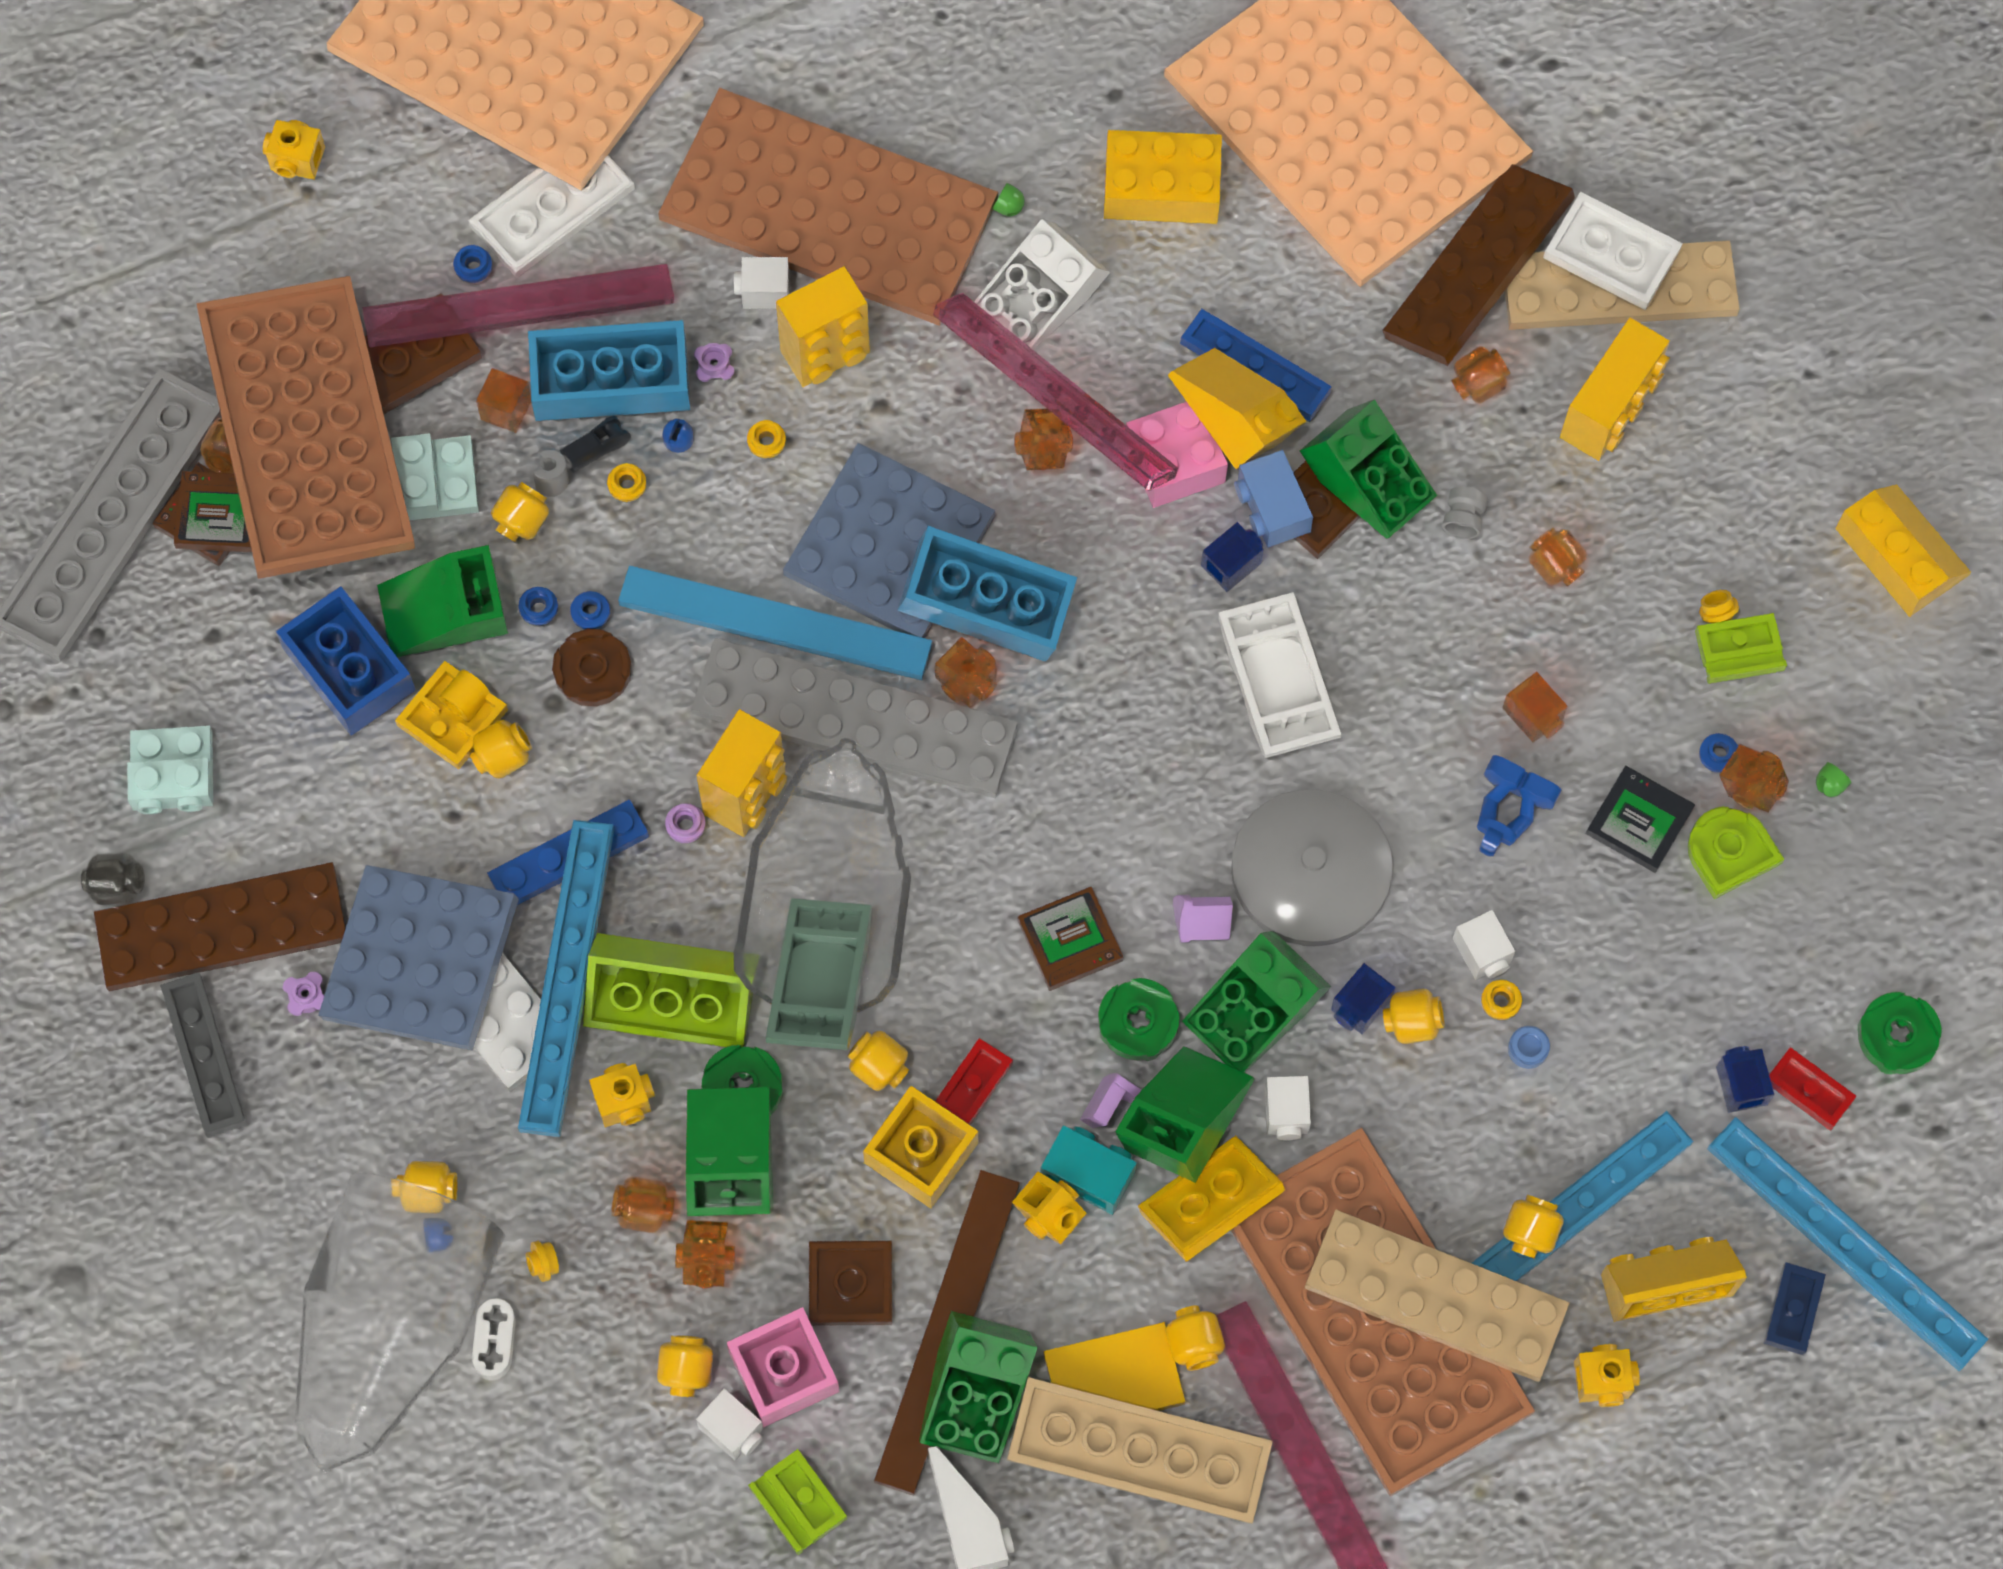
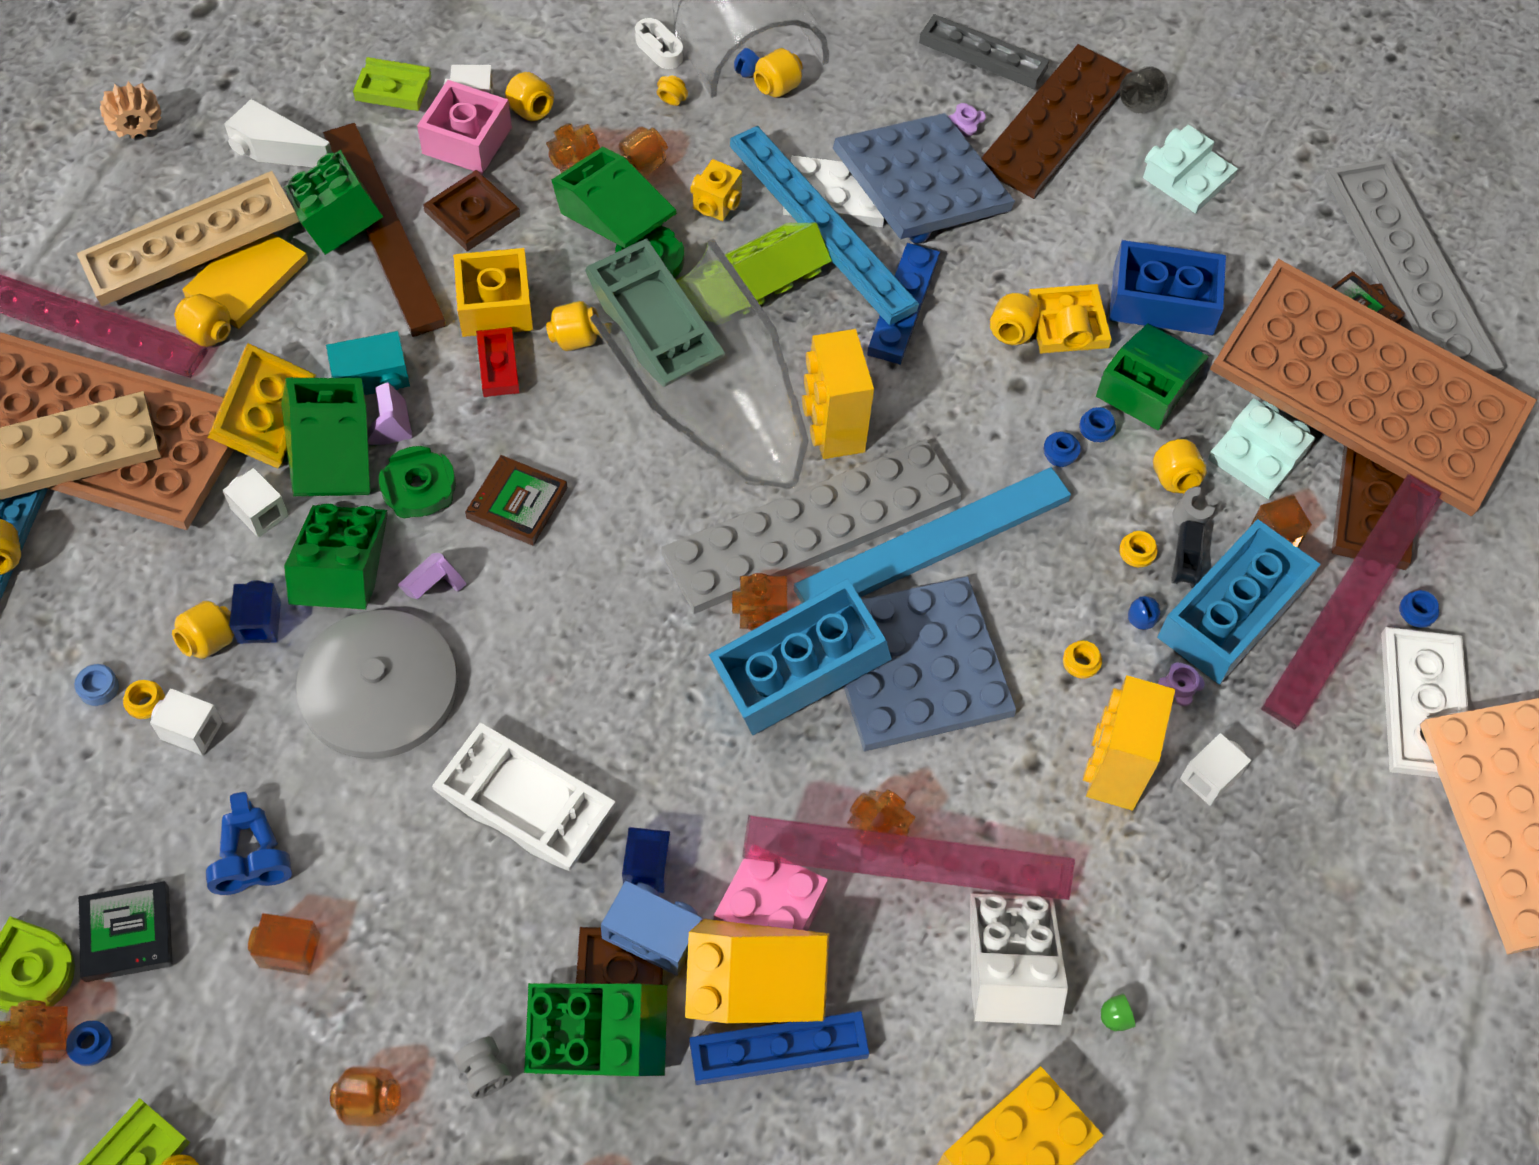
camera: 135 degrees right, 10 degrees down
(592, 667) = (1019, 419): reddish brown tile -> none
(828, 204) = (1243, 885): nougat plate -> none
(1056, 1212) = (371, 314): yellow brick -> none

